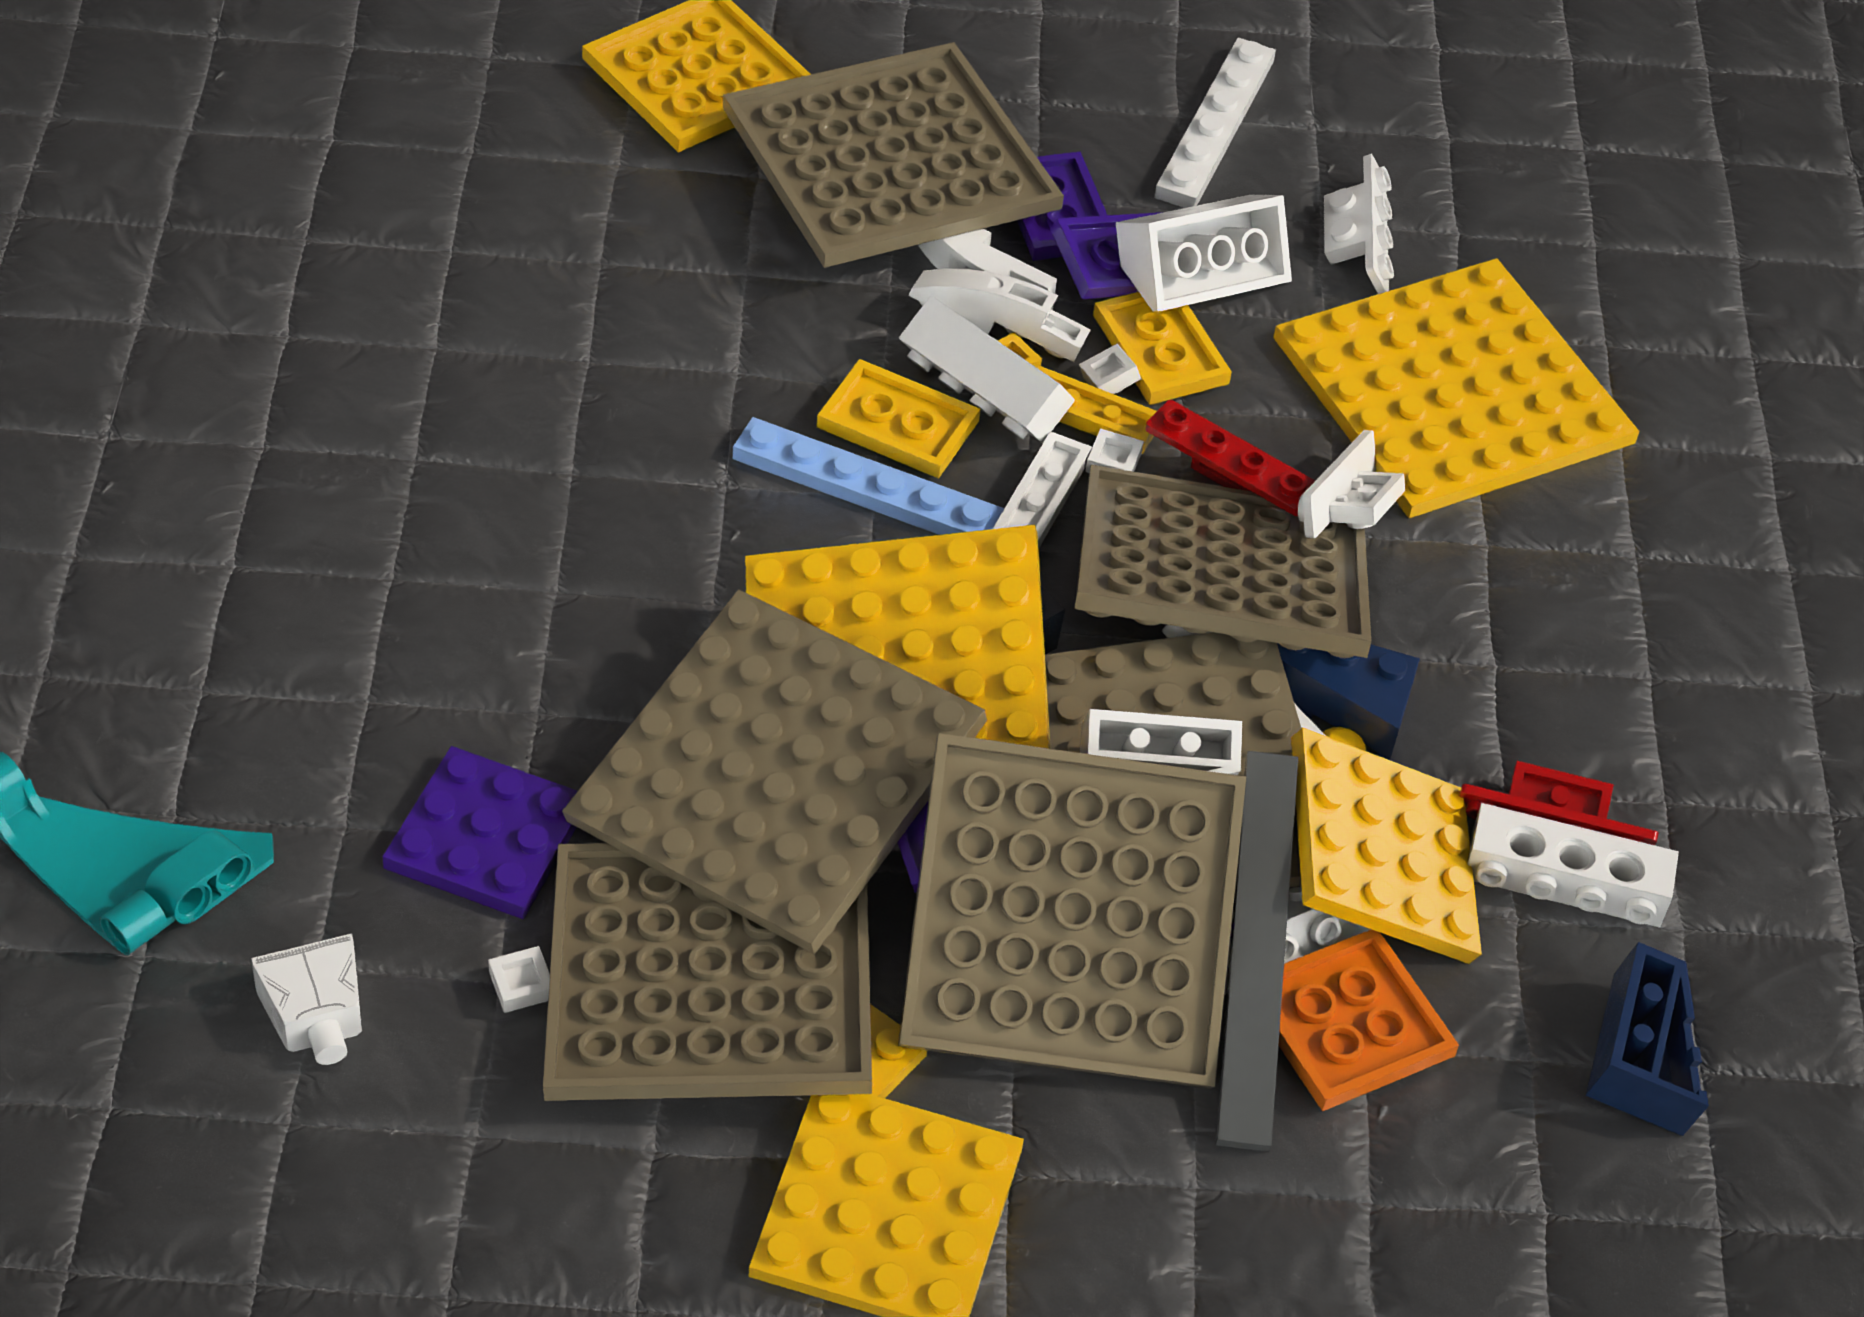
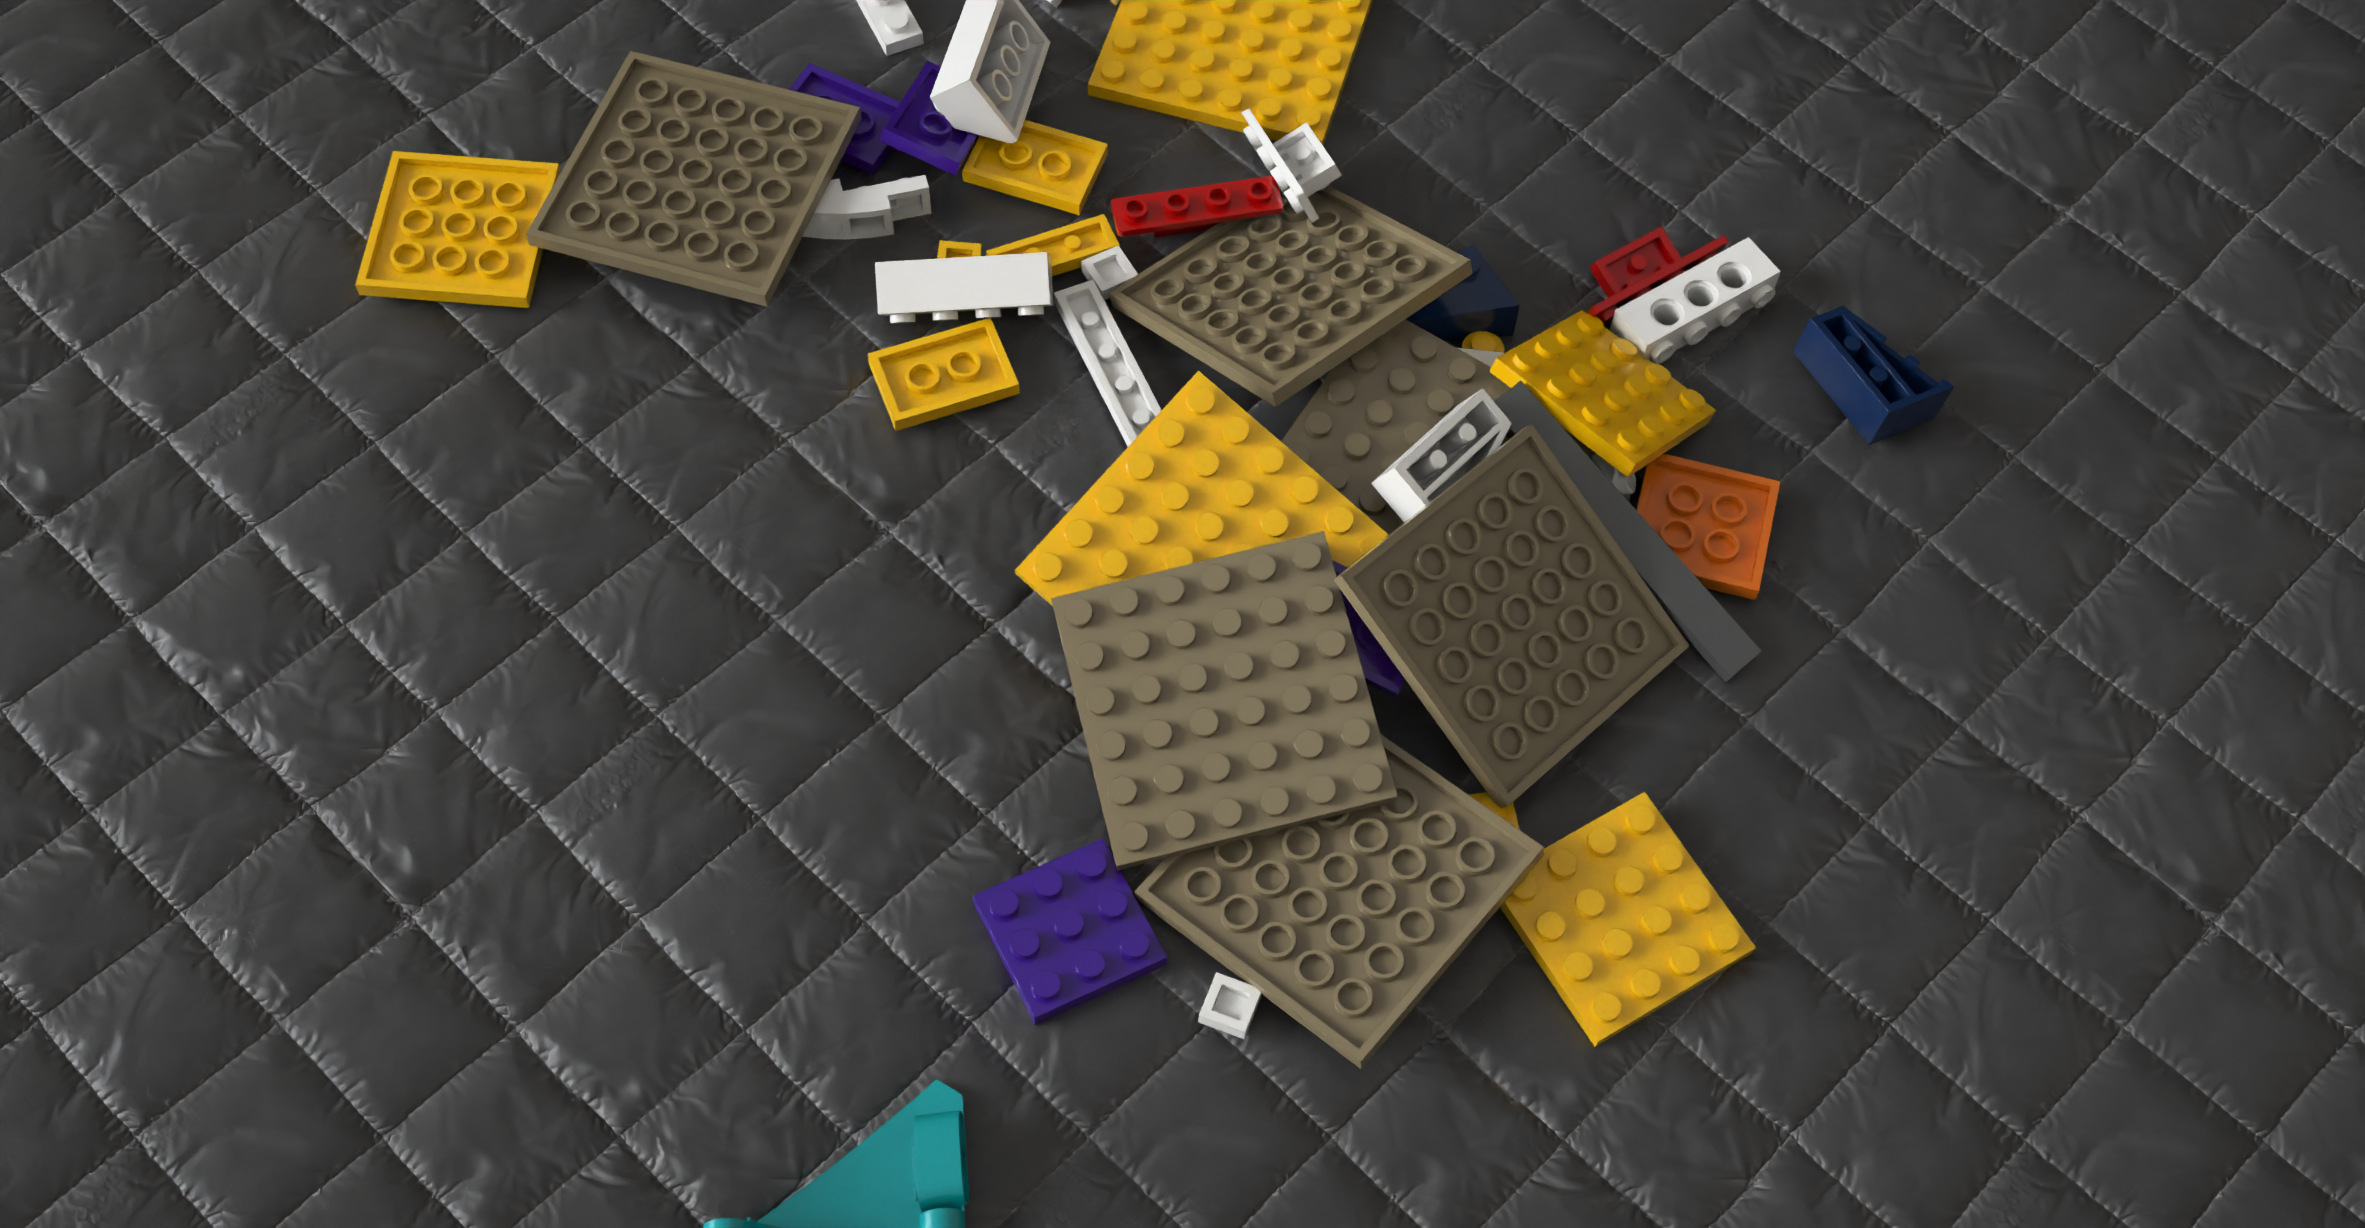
camera: 45 degrees left, 10 degrees up
(312, 996) = (1126, 1159): white torso -> none
(862, 480) = (979, 441): light blue plate -> none
(1001, 299) = (902, 227): white slope -> none
(1110, 370) = (1031, 212): white plate -> none

